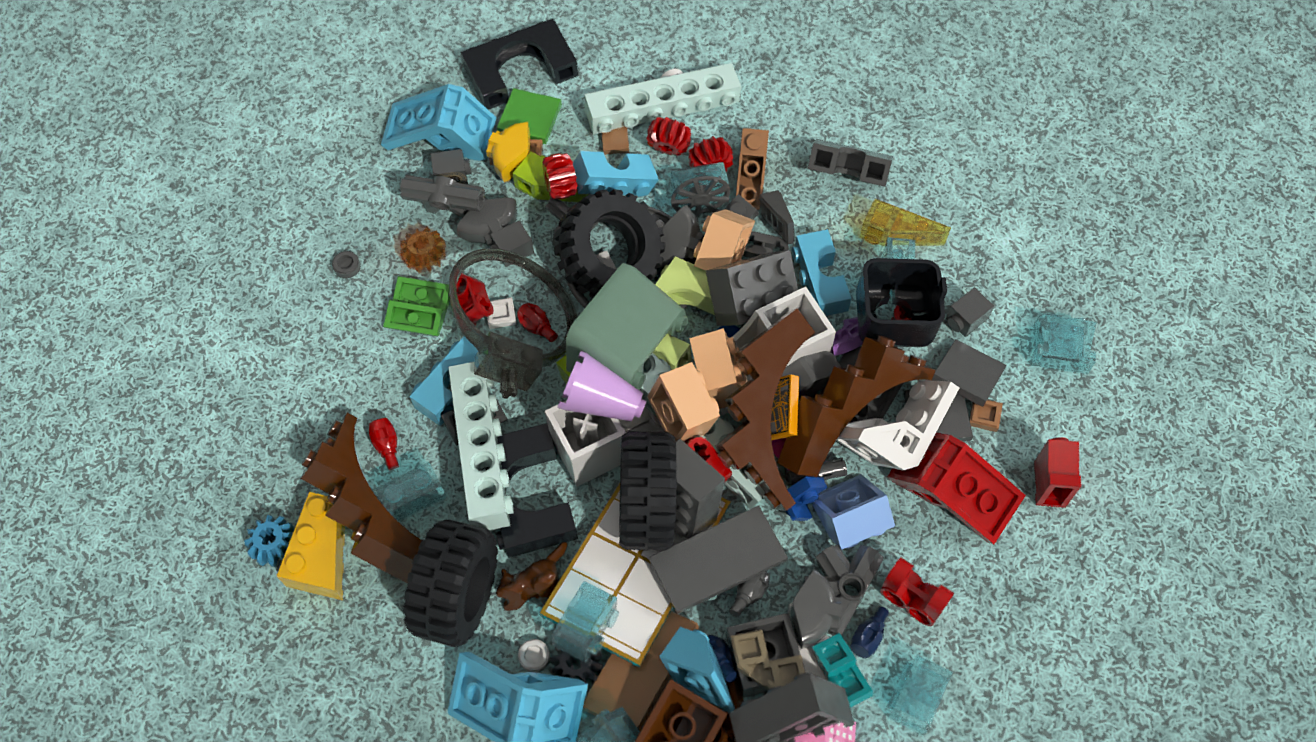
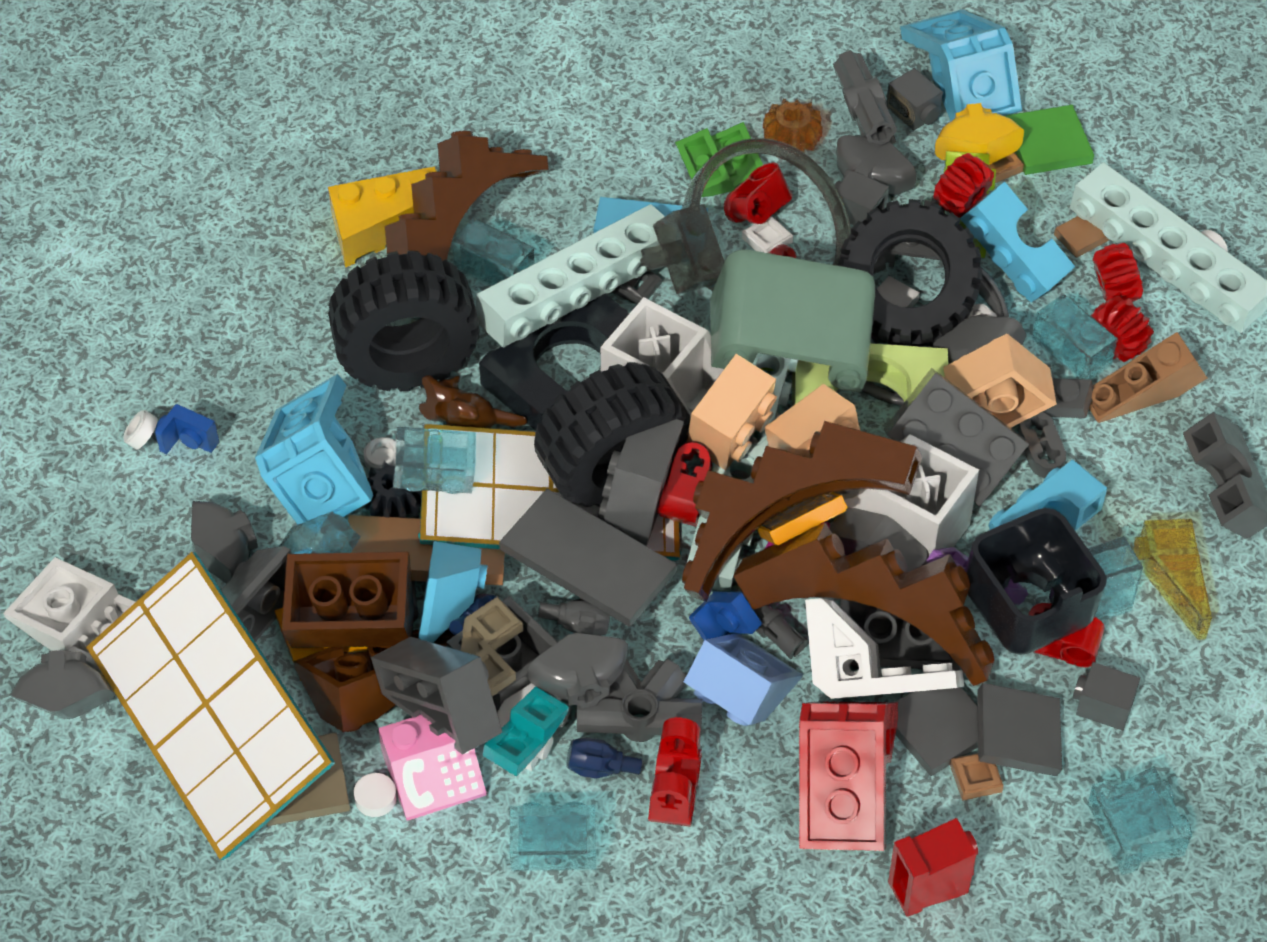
camera: 60 degrees right, 10 degrees down
(270, 552) = (367, 164): dark azure gear -> none
(346, 264) = (728, 75): dark grey tile -> none
(384, 441) = (541, 208): red piece -> none
(538, 41) = (1087, 61): black arch -> none
(600, 392) = (688, 318): lavender cone -> none
(701, 195) = (1053, 338): dark grey wheel -> none
(777, 215) = (1094, 432): dark grey slope -> none

